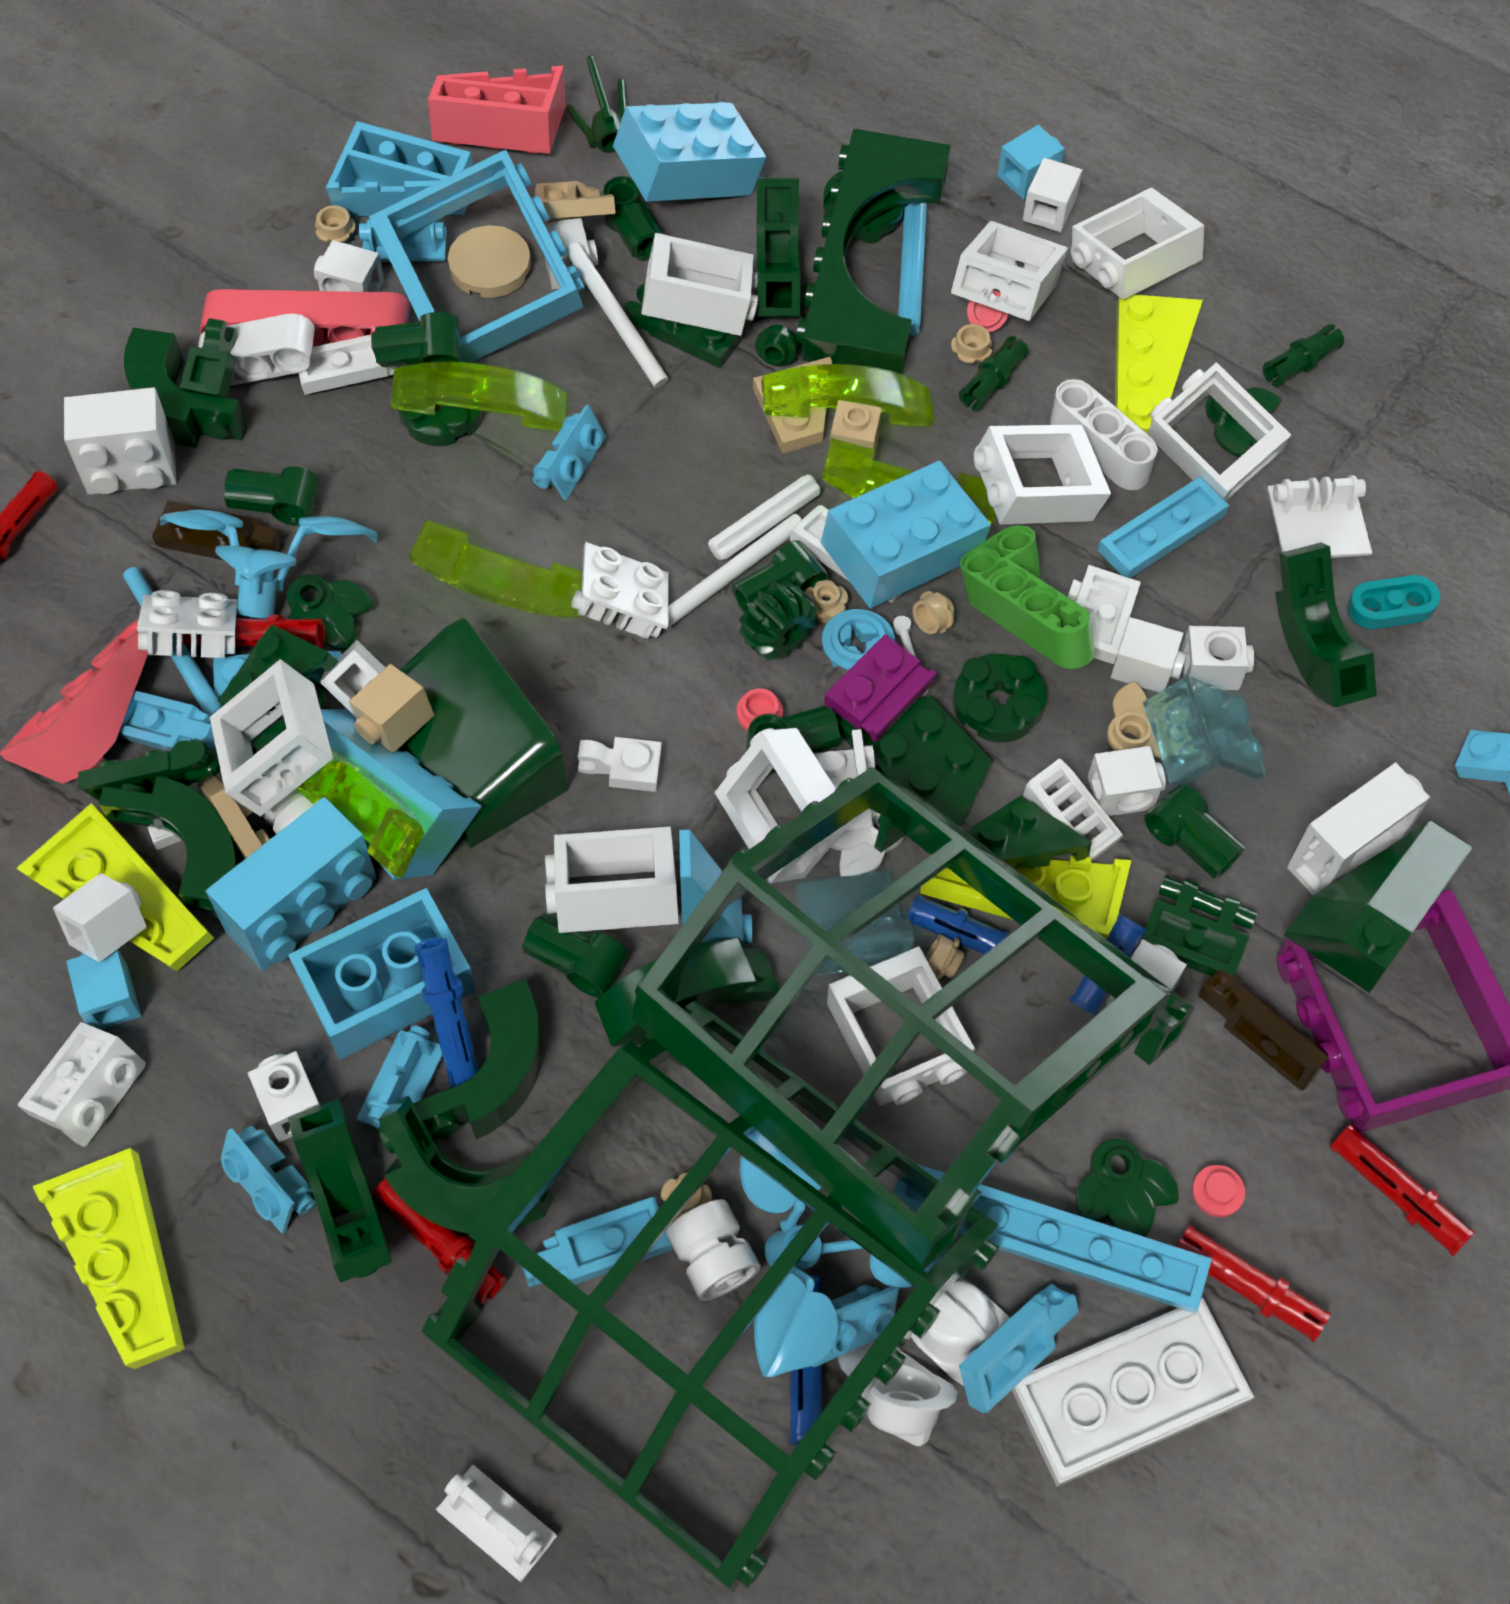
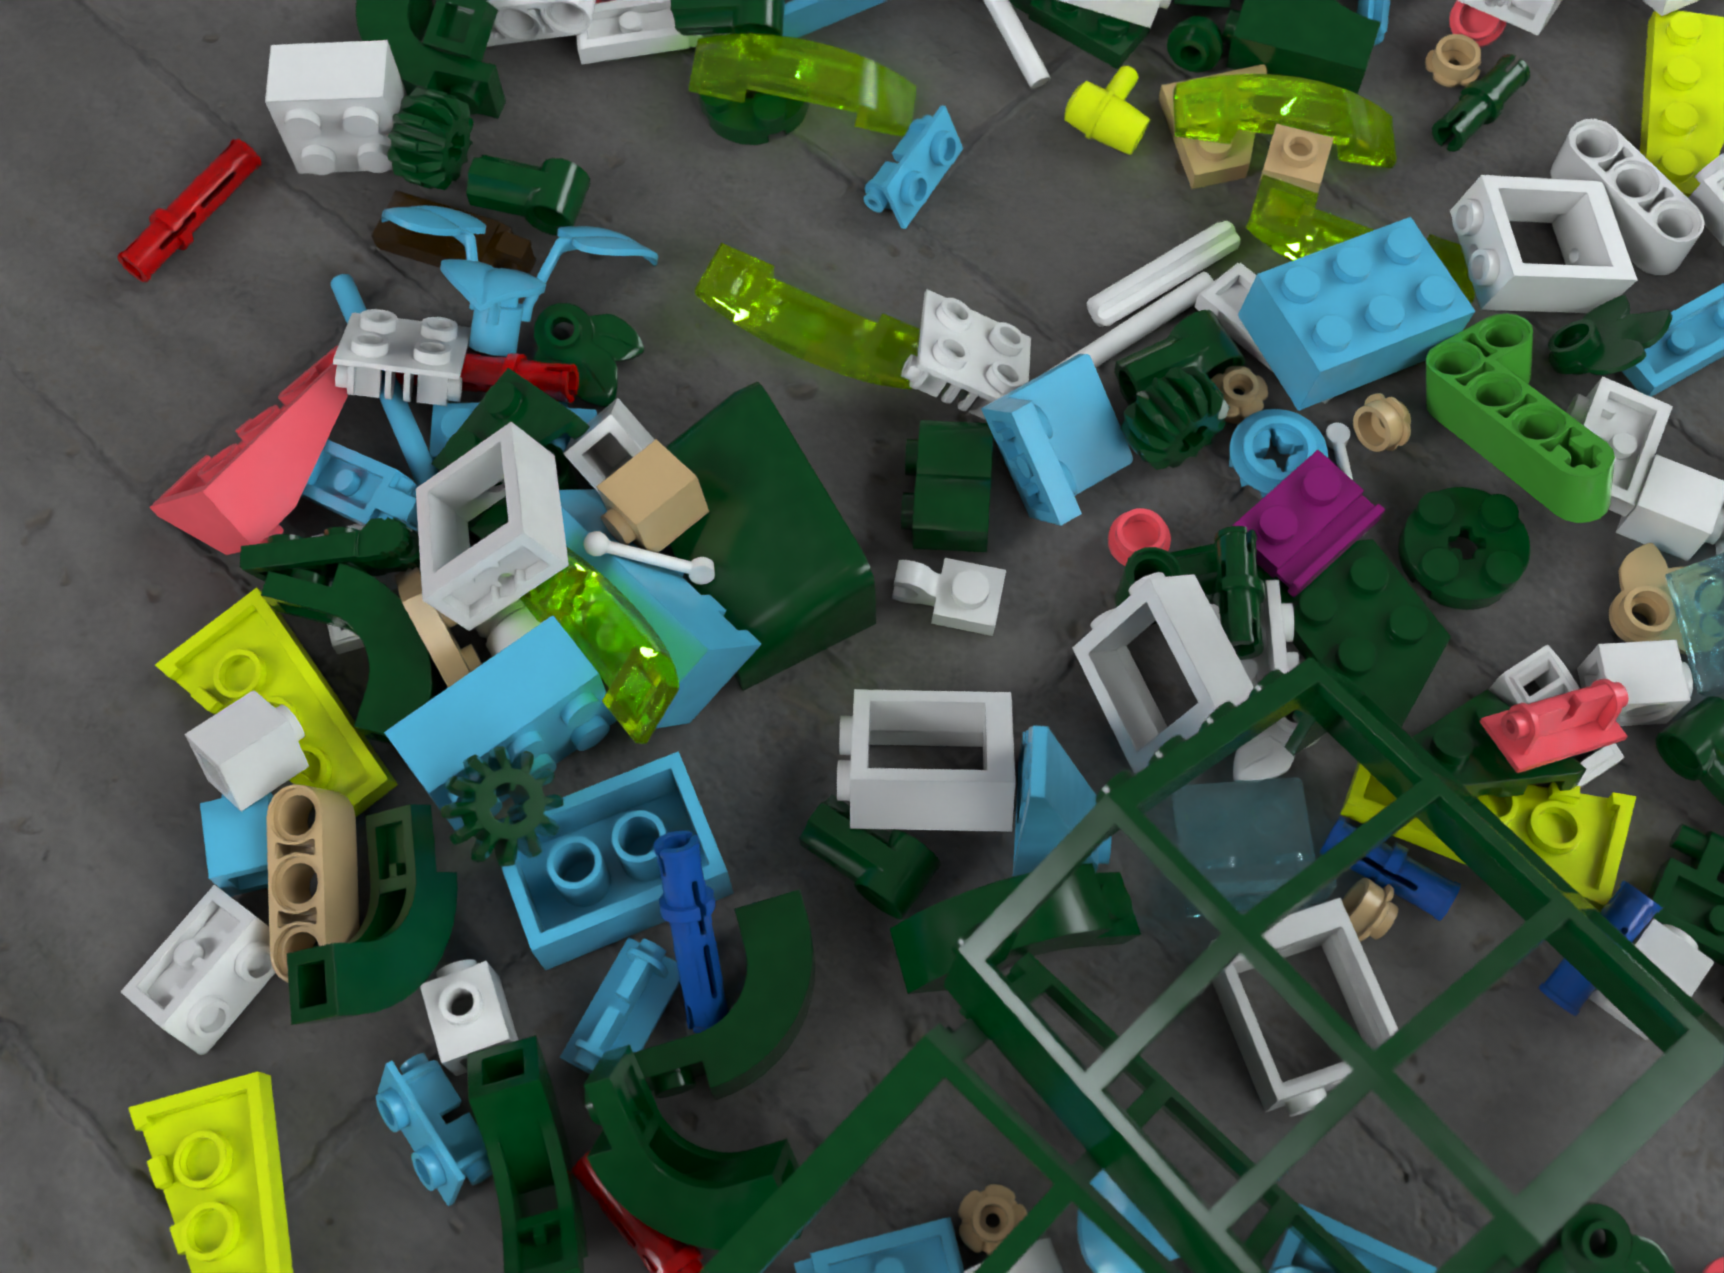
camera: 10 degrees right, 5 degrees up
(142, 995) = (292, 860): none -> tan beam
(192, 459) = (430, 138): none -> dark green gear
(229, 1038) = (401, 934): none -> dark green arch
(287, 917) = (478, 799): none -> dark green gear
(431, 757) = (700, 570): none -> white hinge
(615, 684) = (950, 486): none -> dark green brick
(692, 642) = (1058, 438): none -> medium azure bracket
(712, 402) = (1106, 115): none -> neon yellow piece
(831, 736) = (1239, 590): none -> dark green pin
(1066, 813) = (1559, 725): none -> coral hinge
(1092, 538) = (1606, 339): none -> dark green plate

